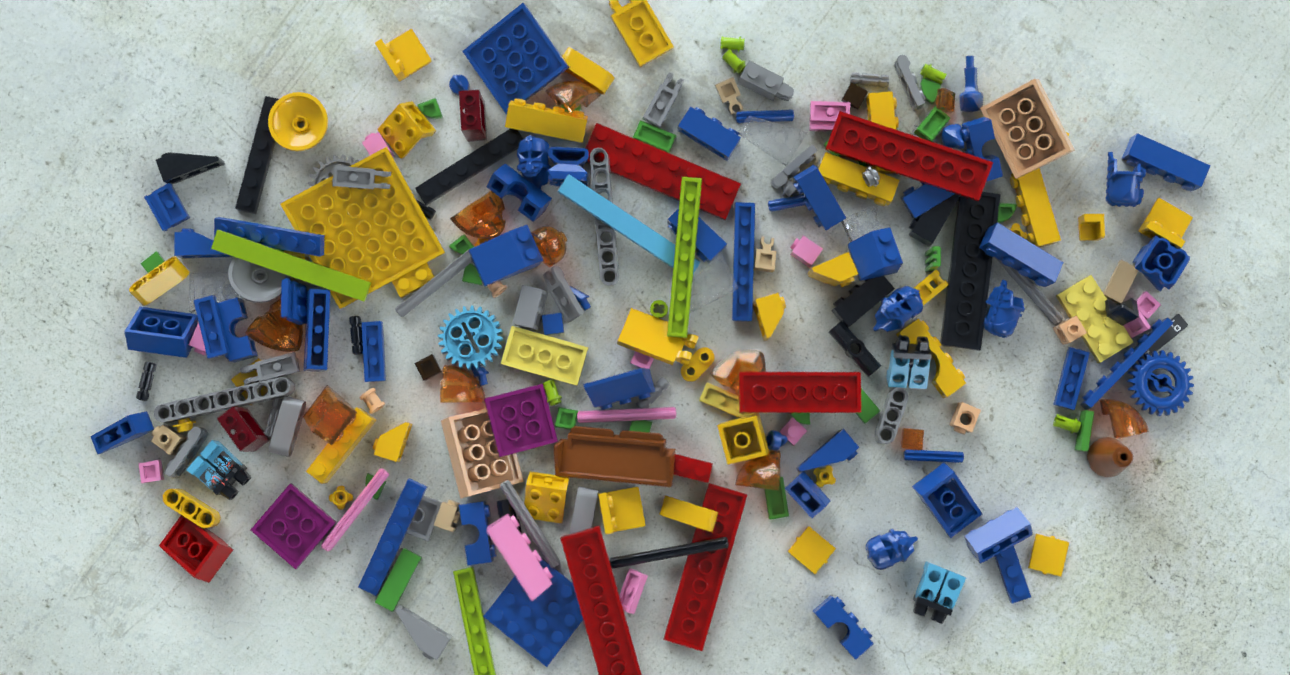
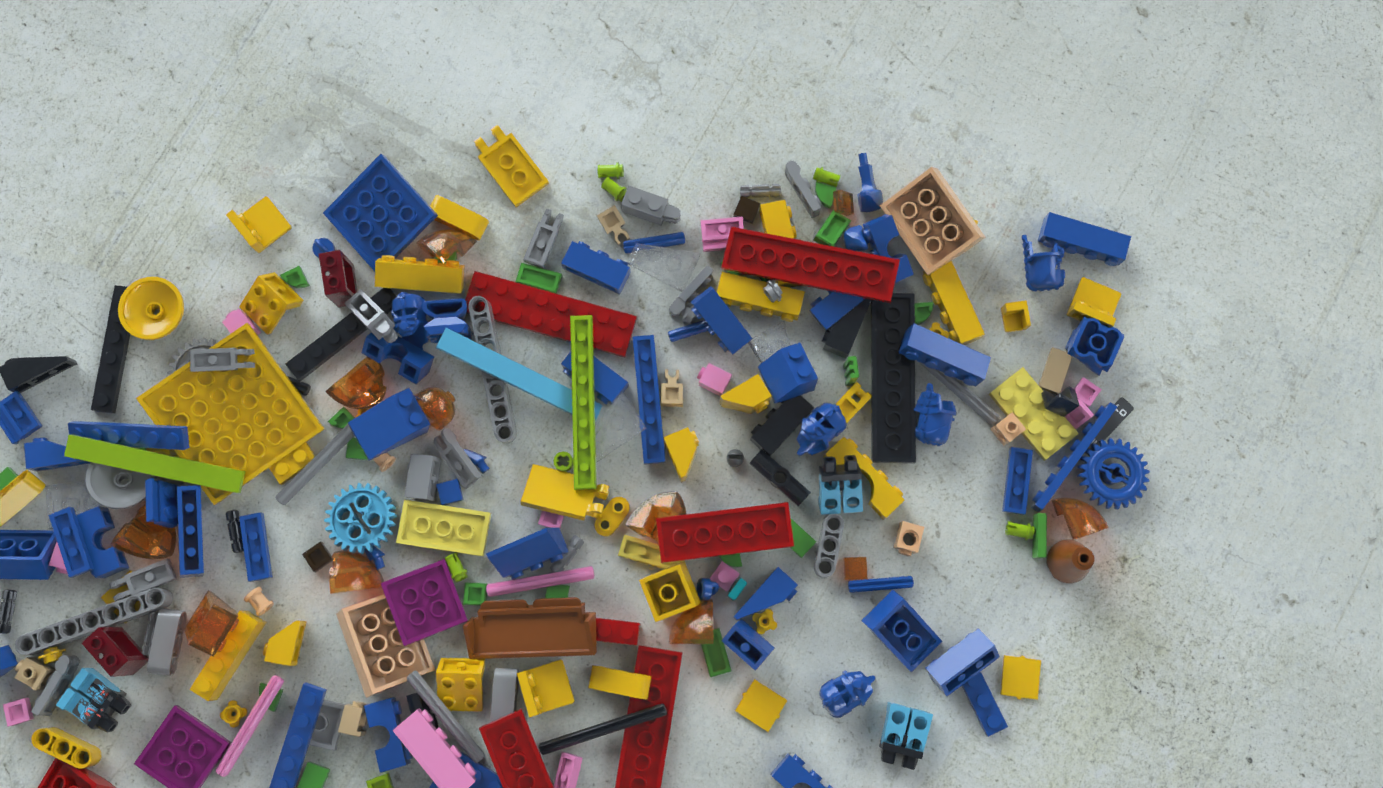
camera: 10 degrees left, 5 degrees down
(500, 155) = (372, 316): none -> light grey hinge
(803, 444) = (737, 589): none -> teal tile
(814, 329) = (735, 462): none -> dark grey hinge

